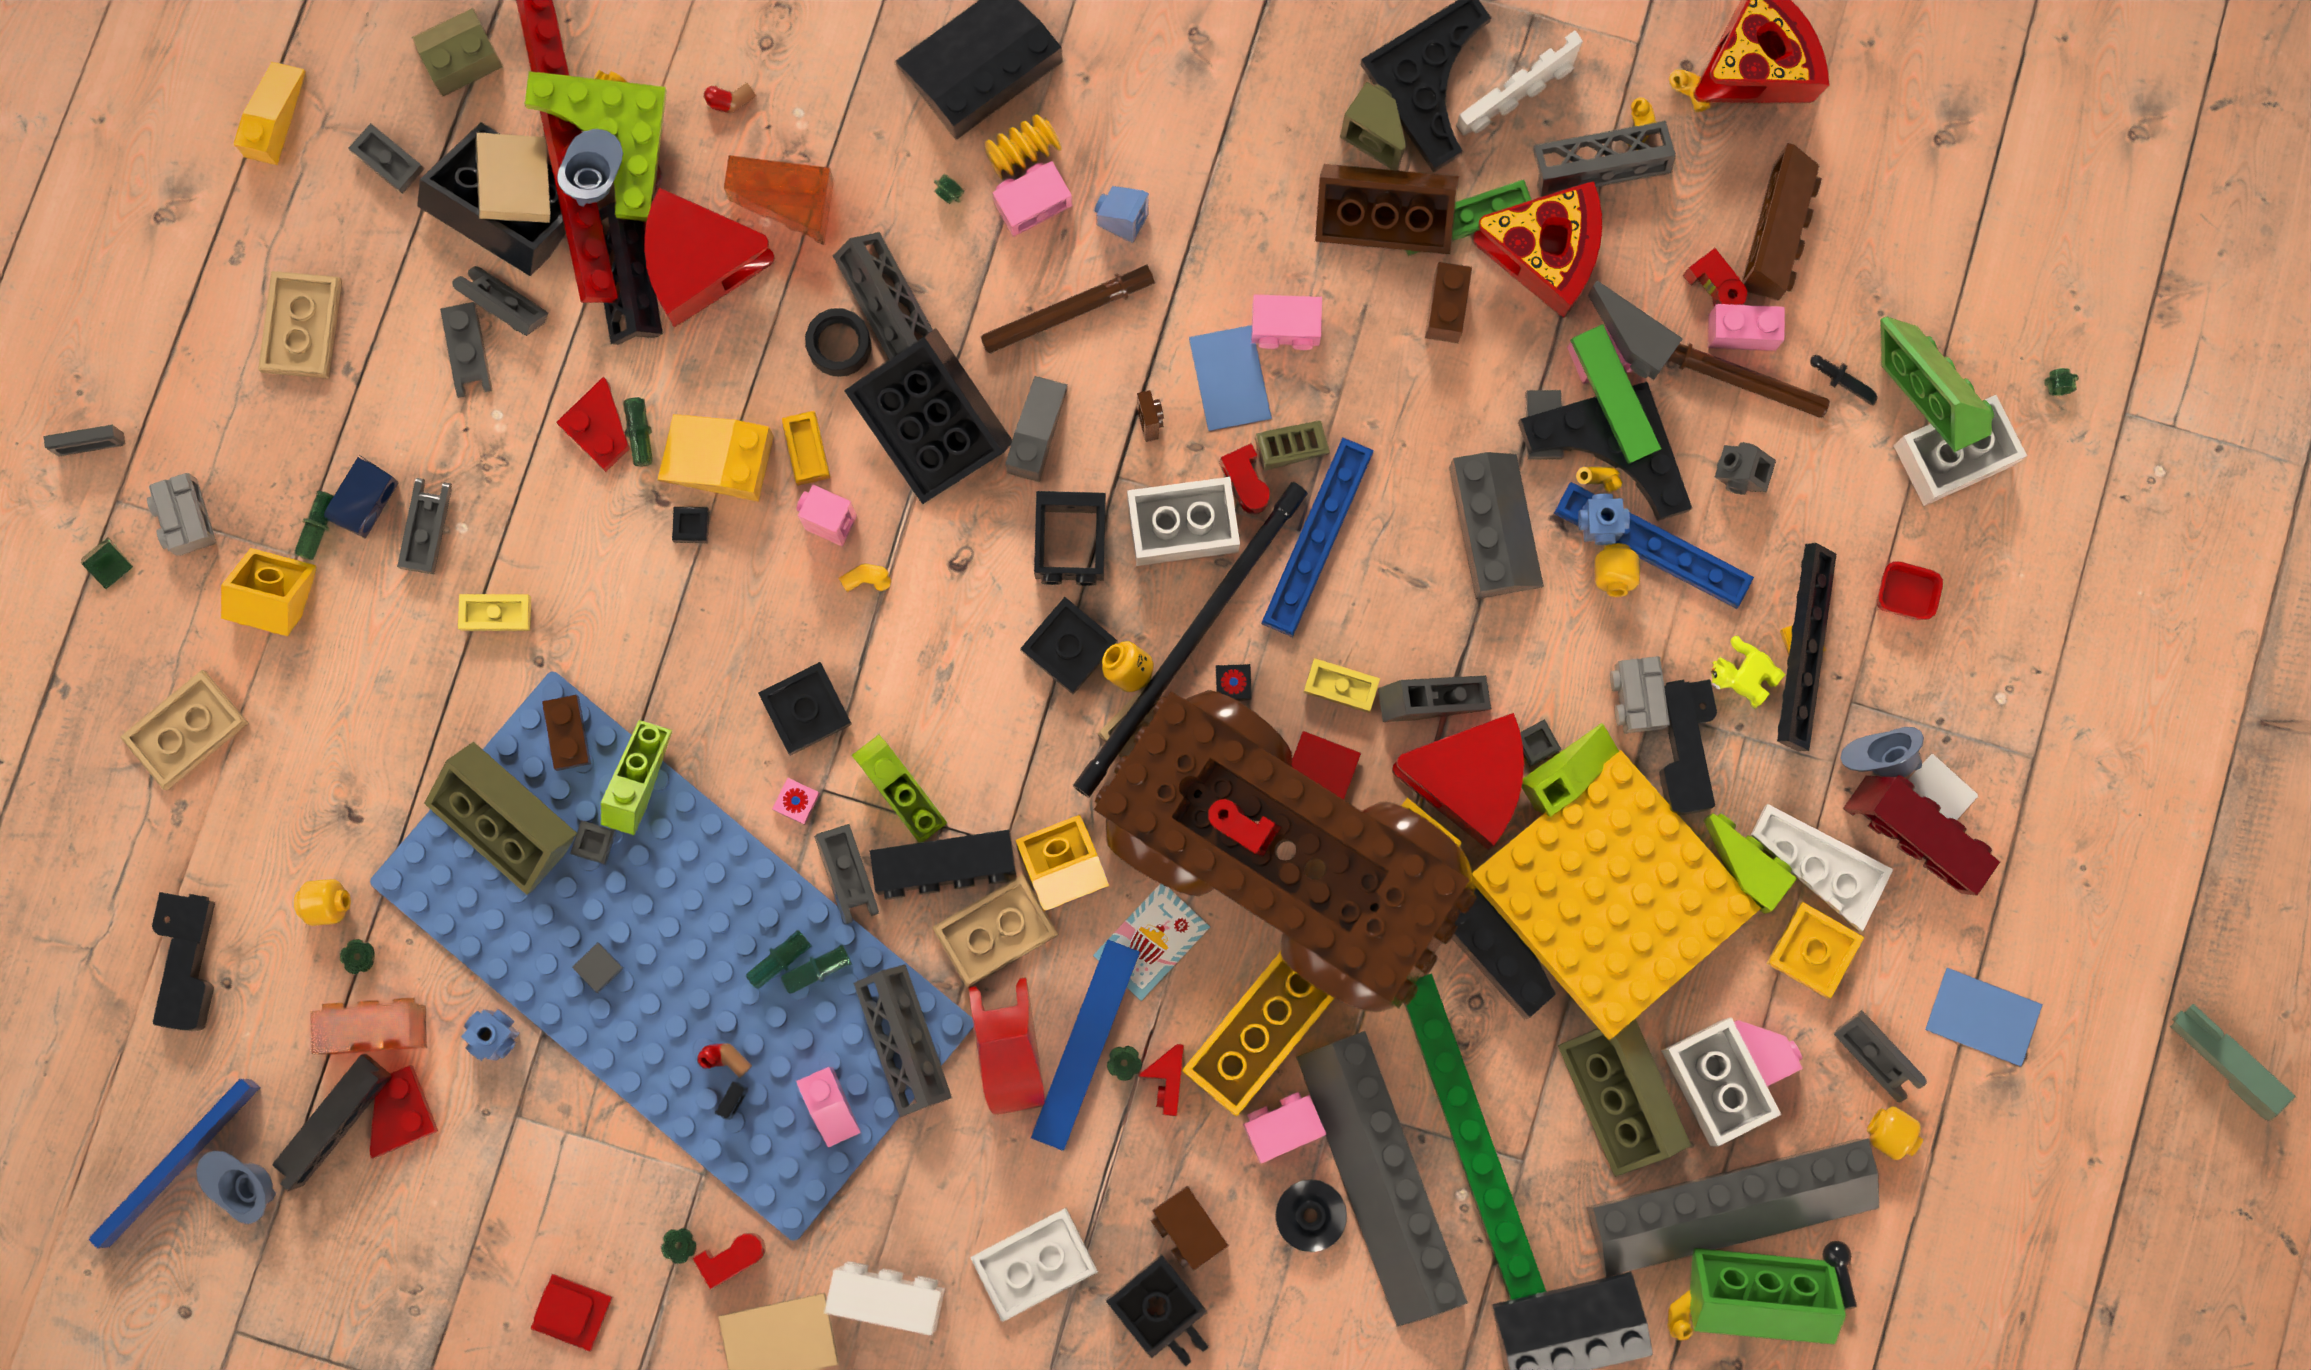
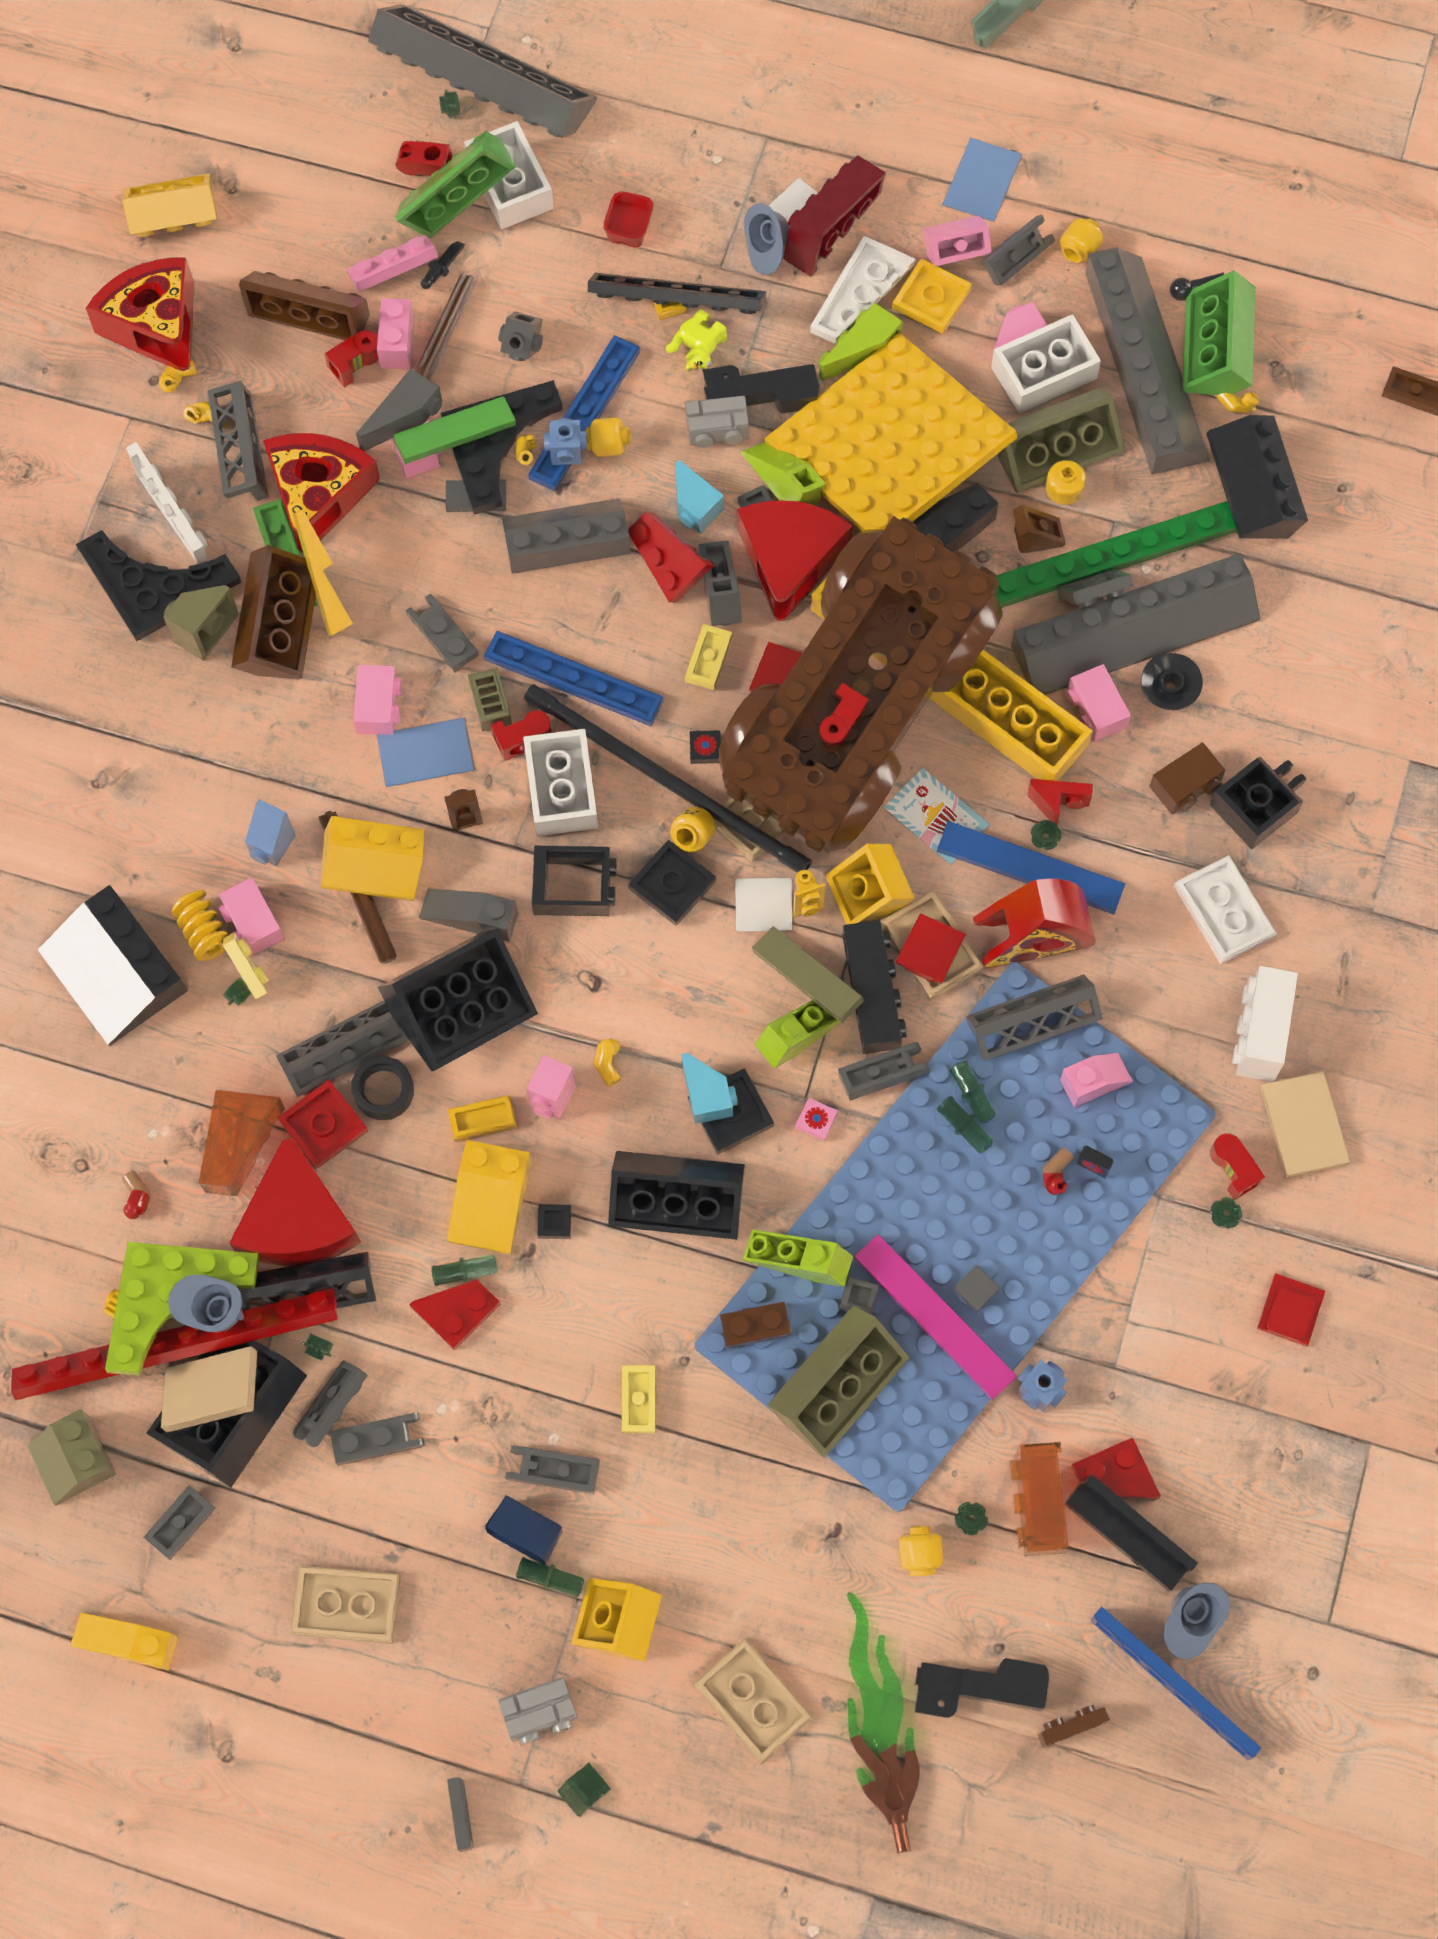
camera: 85 degrees left, 10 degrees down
(135, 854) = (878, 1739): none -> piece
(140, 1066) = (1086, 1719): none -> reddish brown plate
(561, 286) = (317, 1347): none -> clear green plate
(568, 922) = (935, 1317): none -> dark pink tile
(713, 650) = (676, 1195): none -> black slope
(800, 282) = (322, 1124): none -> red plate
(819, 679) = (707, 1091): none -> medium azure slope
(954, 791) = (807, 974): none -> olive tile
(970, 192) = (239, 953): none -> light yellow plate
(984, 927) = (930, 949): none -> red piece
(1046, 789) = (809, 896): none -> yellow hinge
(1047, 747) = (763, 904): none -> white sticker
(1090, 320) = (372, 858): none -> yellow slope
(1370, 393) = (444, 634): none -> dark grey hinge
(1424, 1128) = (1088, 589): none -> dark grey plate
(1441, 247) = (317, 559): none -> yellow slope
(1448, 302) = (364, 566): reddish brown brick -> none
(1459, 639) = (669, 558): none -> red wing
(1504, 1066) = (1037, 530): none -> reddish brown slope
(1538, 669) = (696, 499): none -> medium azure slope
(1552, 1100) = (1065, 482): none -> yellow head
(1842, 322) = (392, 263): none -> bright pink plate
(1887, 980) = (957, 240): none -> bright pink brick
(1912, 68) = (169, 205): none -> yellow slope
(1982, 355) = (422, 157): none -> red leg
(2110, 417) = (480, 69): none -> dark grey slope

